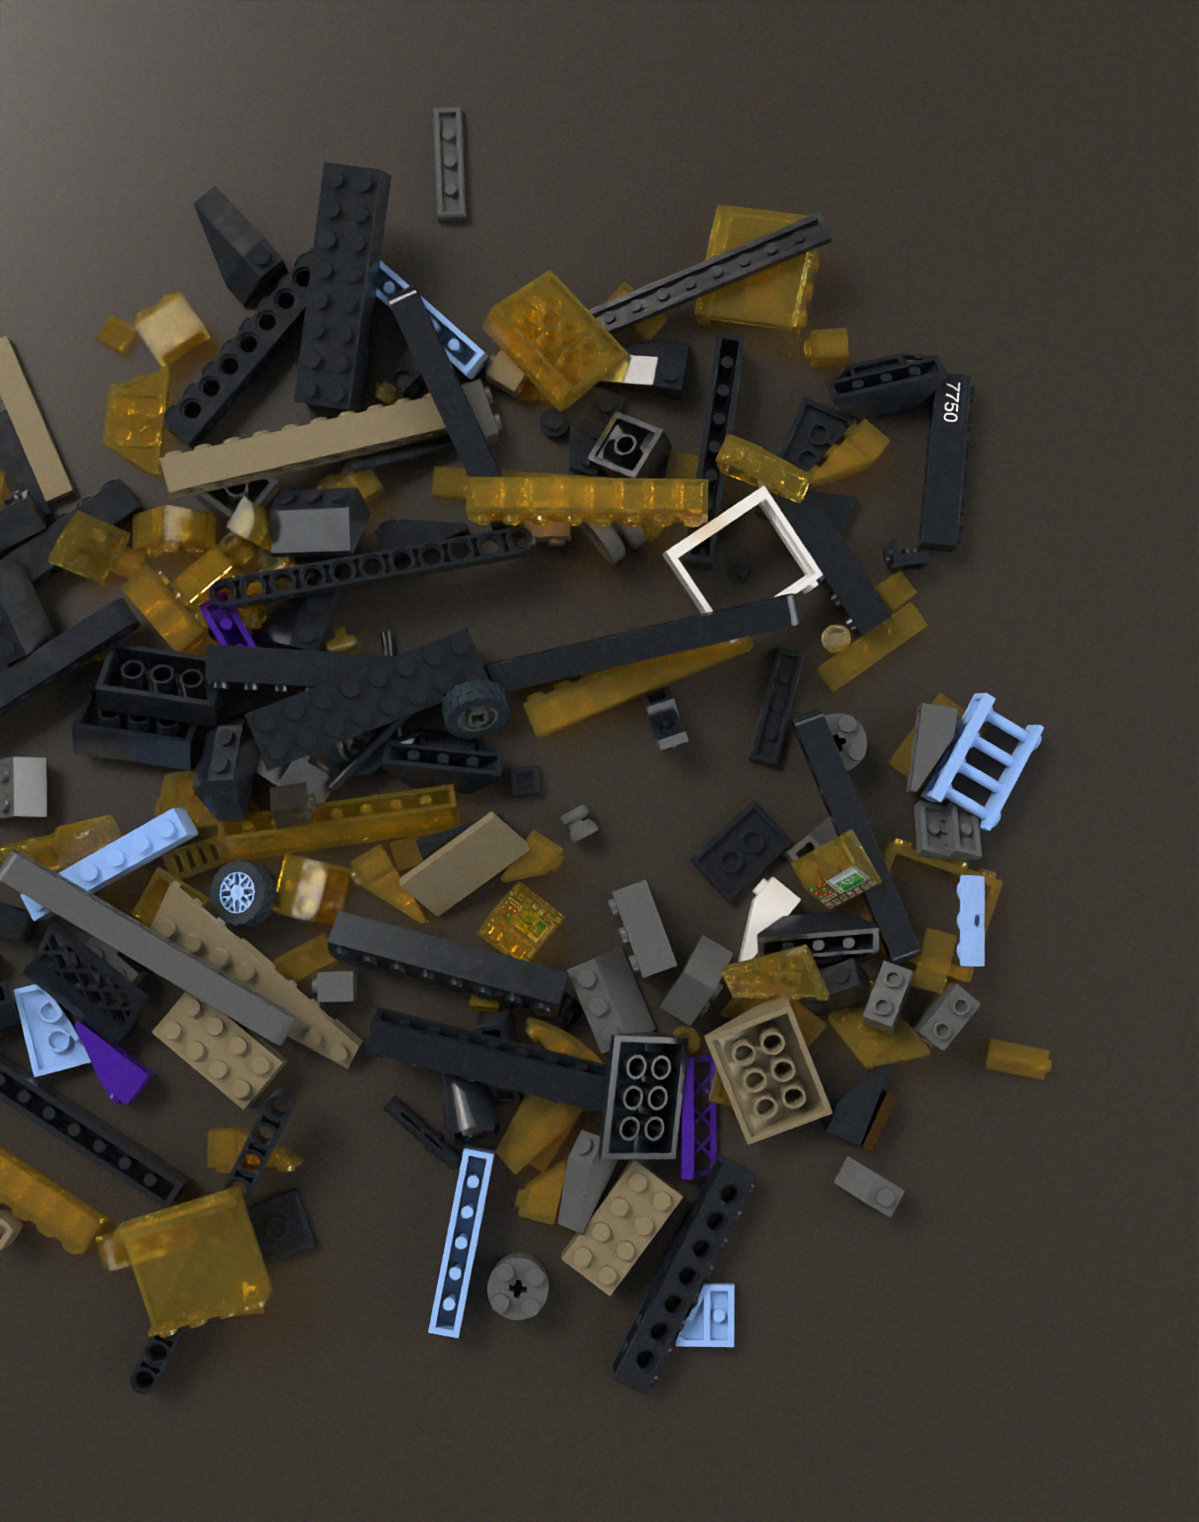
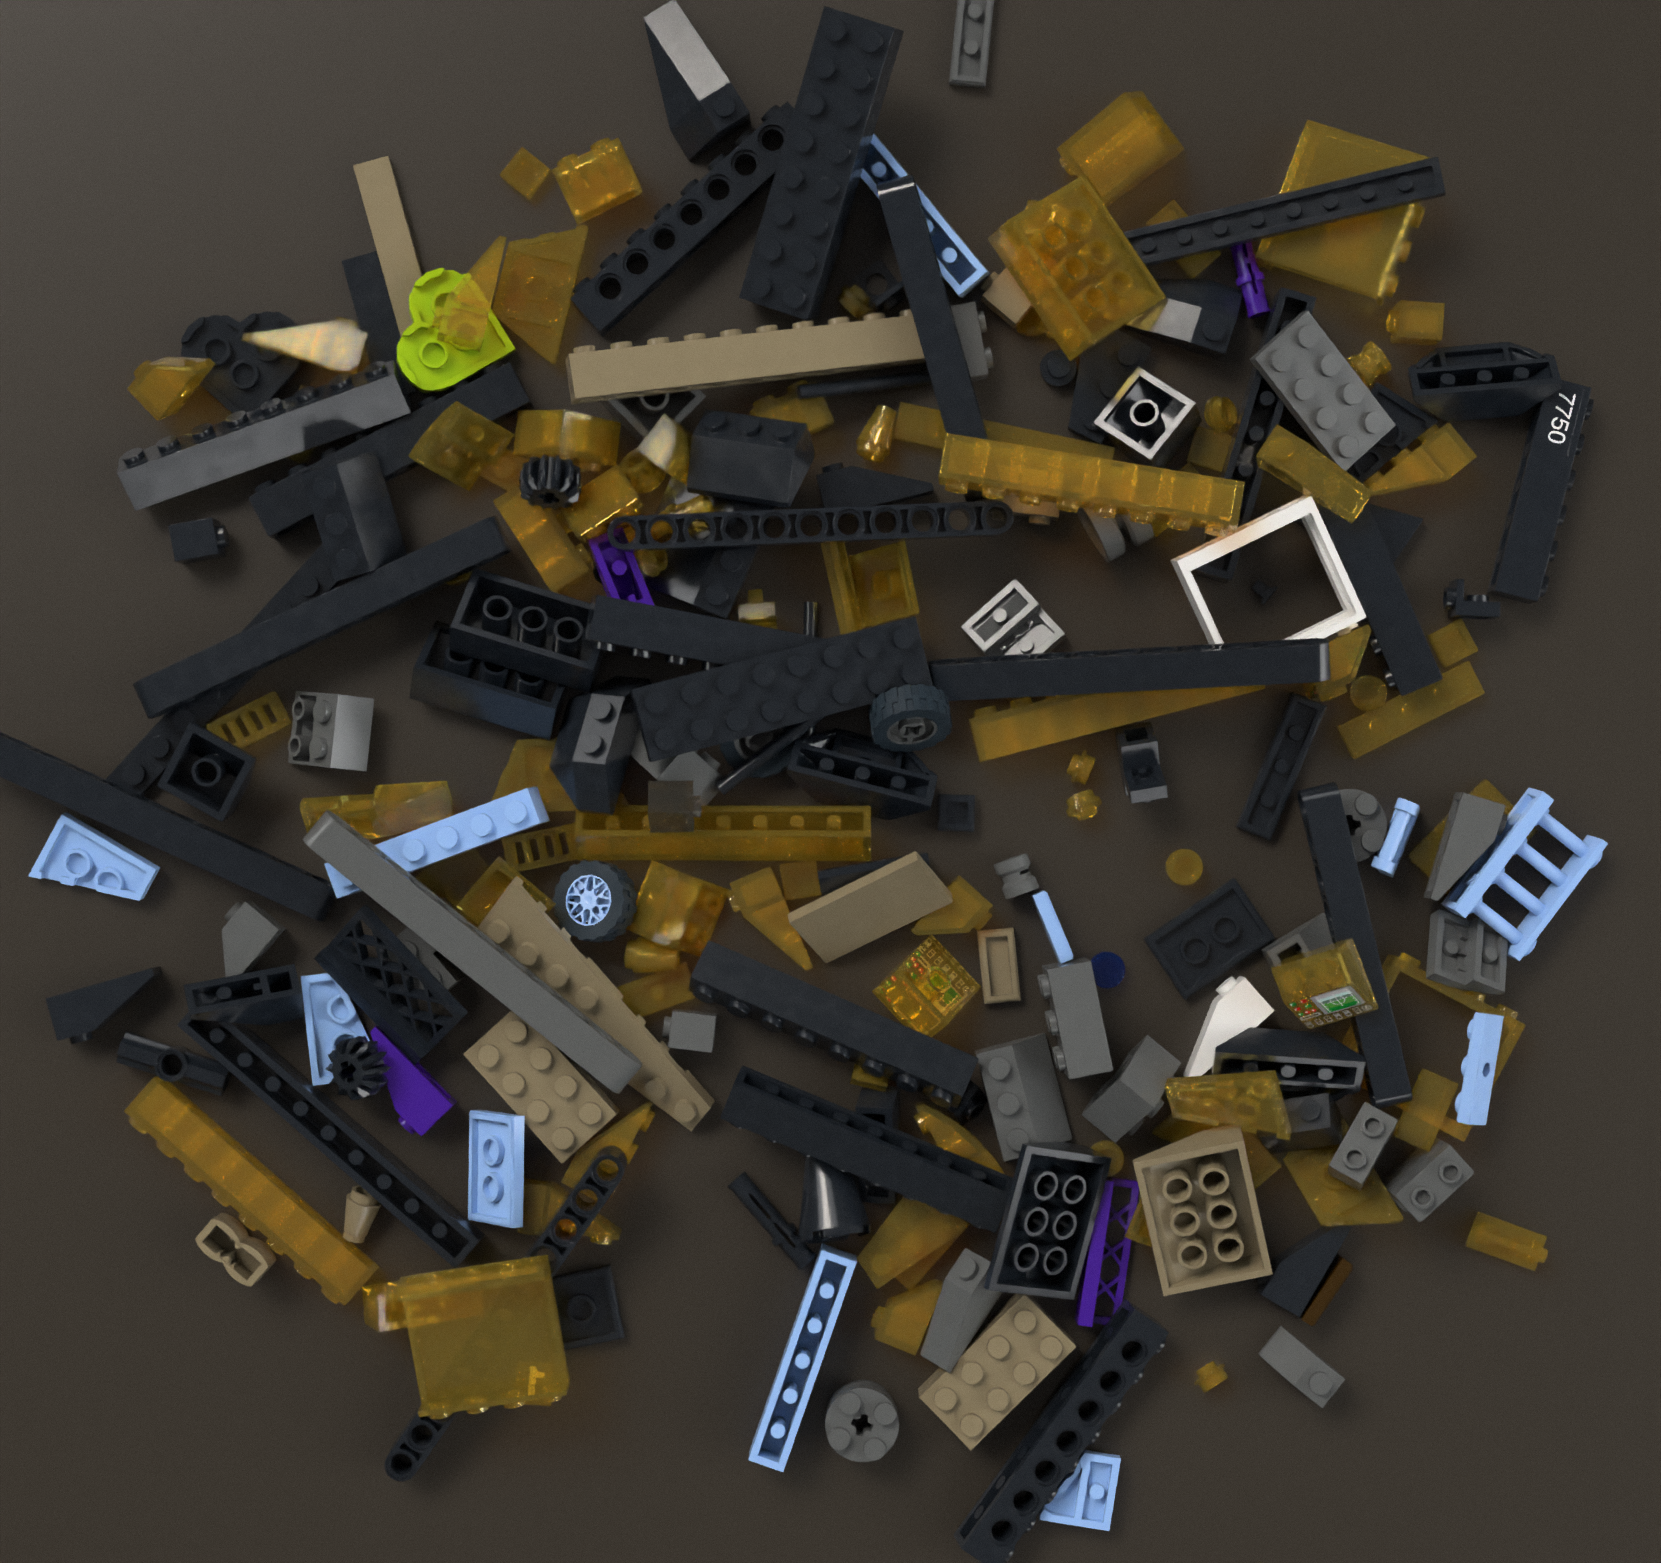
camera: 10 degrees right, 5 degrees up
(67, 1056) = (358, 1067): none -> black gear
(70, 463) = (437, 364): none -> lime plate
(82, 433) = (469, 303): none -> clear yellow slope
(86, 1178) = (359, 1214): none -> dark tan cone
(161, 564) = (550, 482): none -> black gear
(191, 1122) = (496, 1168): none -> light blue tile
(290, 1079) = (618, 1134): none -> clear yellow slope
(293, 931) = (650, 956): none -> clear yellow cone
(407, 613) = (842, 587): none -> clear yellow tile
(419, 494) = (877, 435): none -> clear yellow cone
(440, 607) = (884, 584): none -> clear yellow slope
(547, 626) = (1013, 625): none -> slope
(576, 246) = (1120, 146): none -> clear yellow slope
(576, 897) = (998, 965): none -> dark tan tile
(613, 859) = (1052, 926): none -> light blue tile
(618, 730) = (1081, 767): none -> clear yellow plate
(624, 759) = (1083, 805): none -> clear yellow plate
(663, 888) = (1107, 969): none -> clear blue tile
(686, 439) = (1220, 413): none -> clear yellow plate
(693, 333) = (1250, 280): none -> dark purple pin
(712, 797) = (1184, 866): none -> clear yellow plate
(761, 406) = (1322, 391): none -> dark grey plate
(795, 384) = (1369, 363): none -> clear yellow wheel
(797, 1205) = (1210, 1376): none -> clear yellow plate
(811, 613) = (1345, 659): none -> clear yellow slope
(877, 747) = (1398, 835): none -> light blue plate

